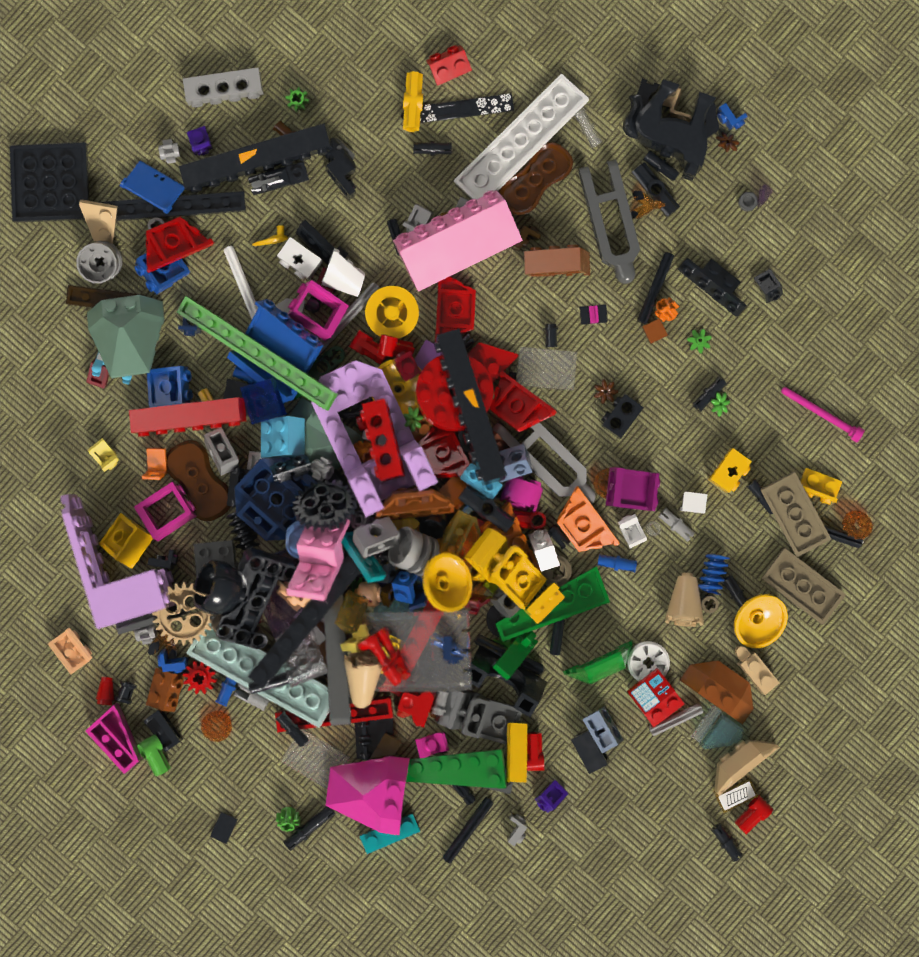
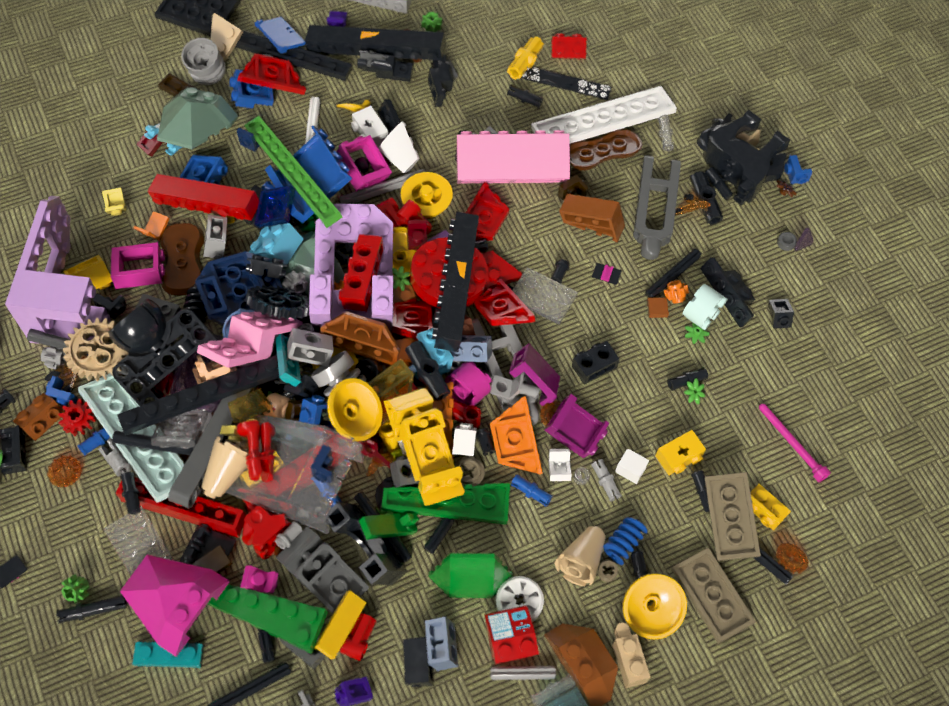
camera: 20 degrees right, 25 degrees down
(169, 151) = (308, 15): light grey gear -> none
(564, 481) = (513, 387): none -> light grey bracket
(577, 457) = (538, 370): none -> magenta panel
(608, 395) = (589, 337): reddish brown plant -> none
(698, 317) = (704, 306): none -> light aqua brick

